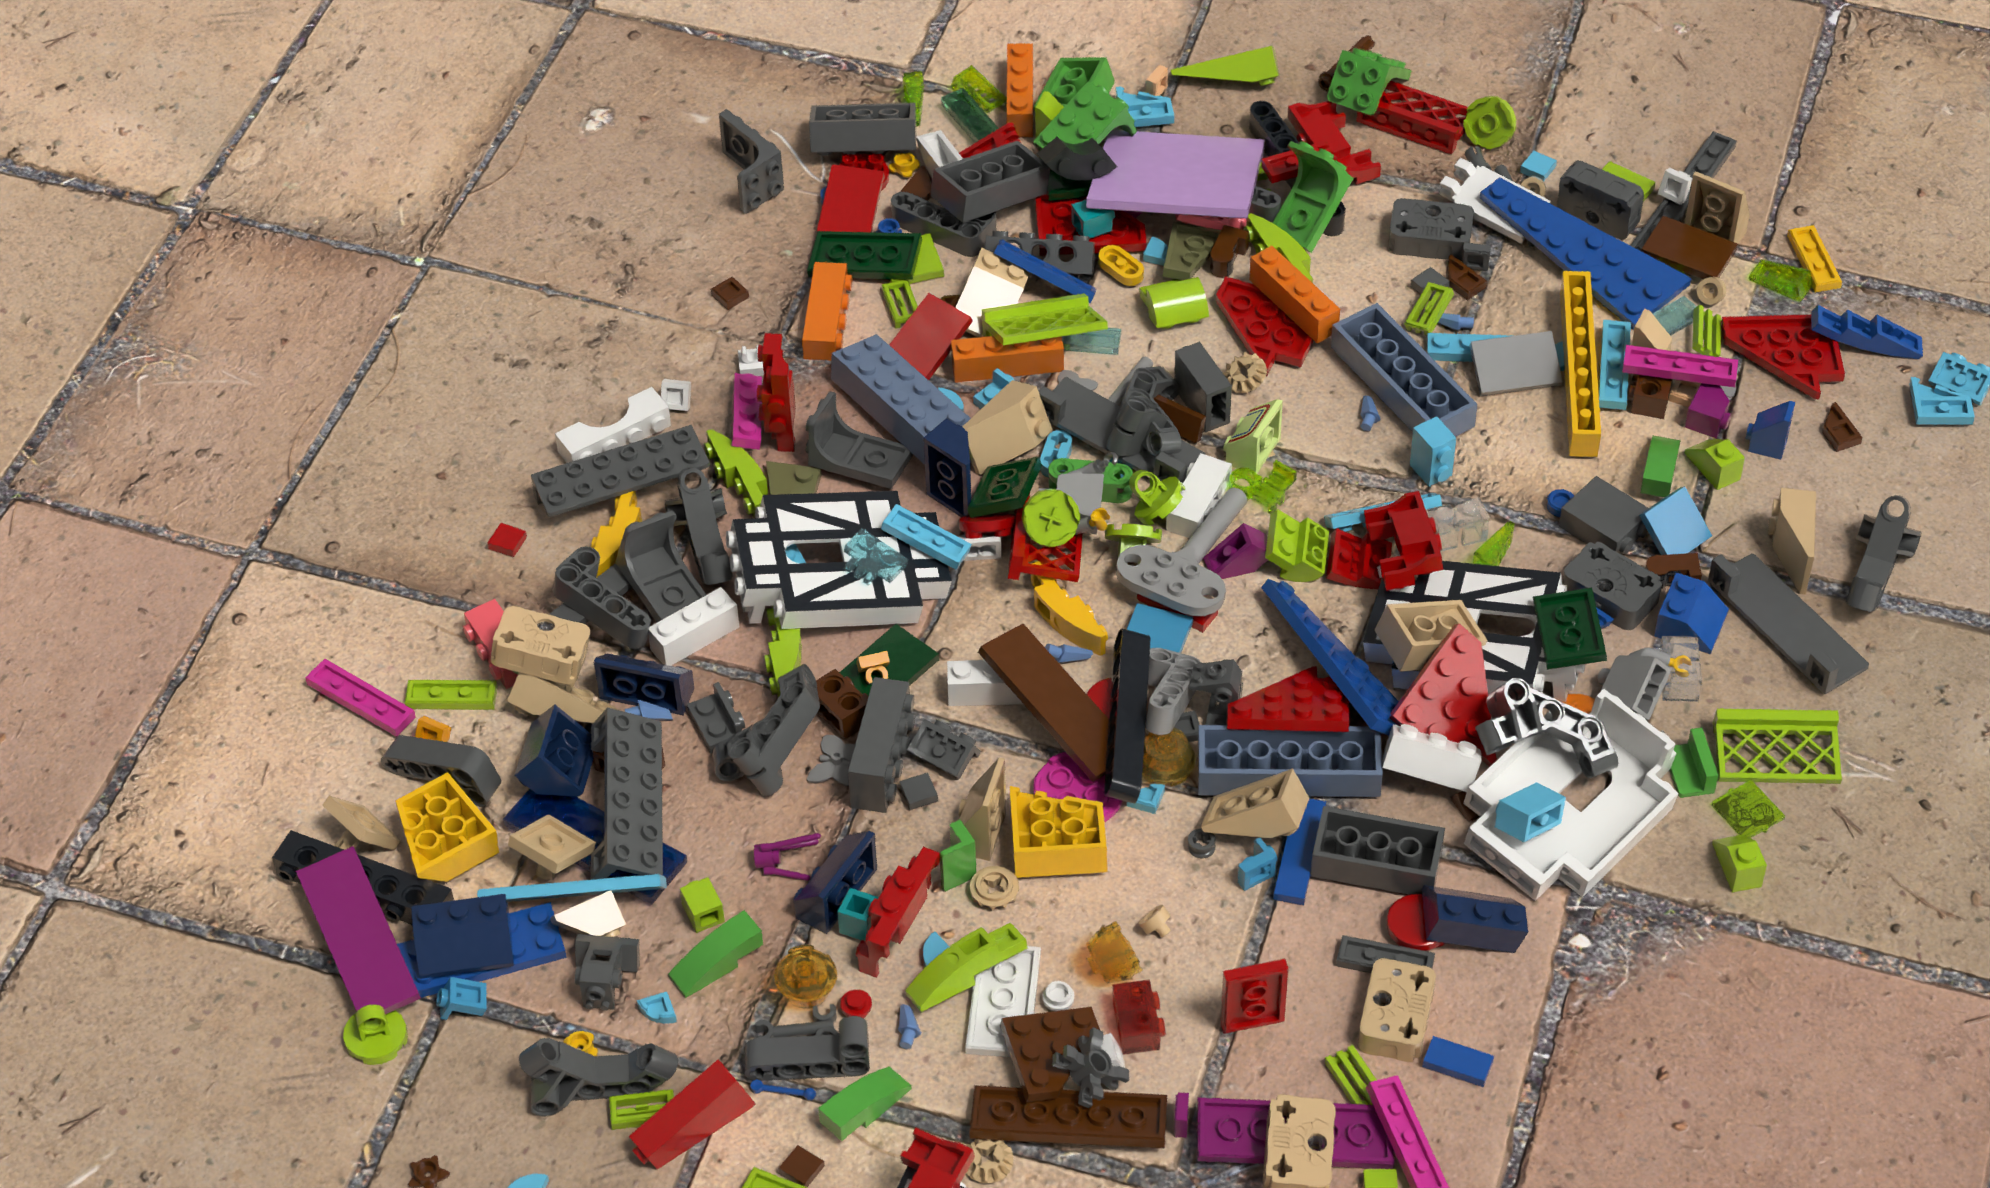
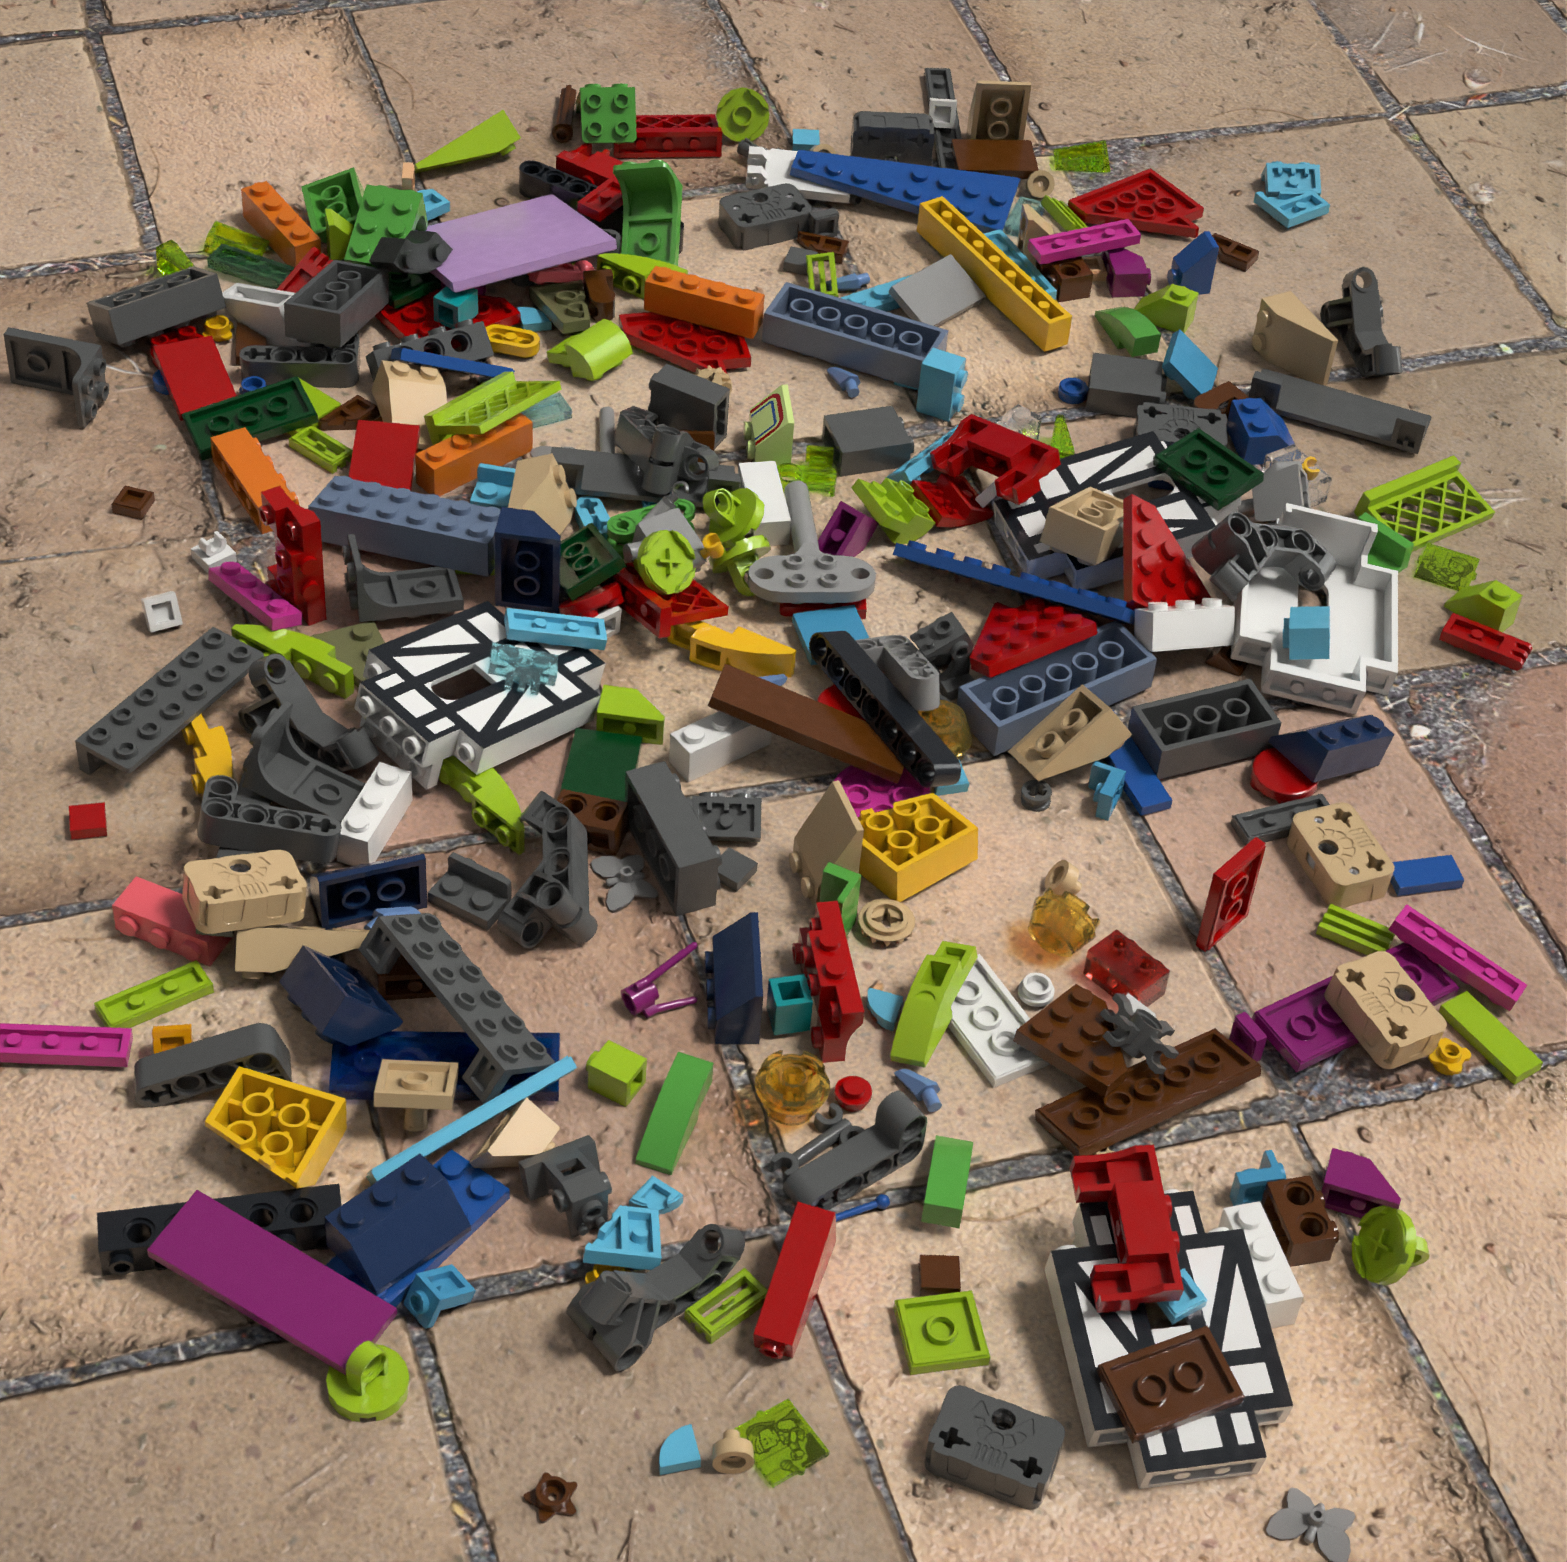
camera: 40 degrees left, 5 degrees down
(360, 825) = (172, 1173): tan tile -> none
(607, 1027) = (627, 1240): none -> medium azure wing
(644, 417) = (144, 645): white arch -> none
(873, 663) = (595, 769): light orange tile -> none
(938, 629) = (629, 713): none -> lime slope
(945, 282) = (348, 414): none -> reddish brown tile
(1333, 476) = (867, 440): none -> dark grey brick
(1709, 891) = (1485, 642): none -> red hinge
(1815, 258) = (1088, 132): yellow tile -> none
(1874, 335) = (1195, 173): blue slope -> none

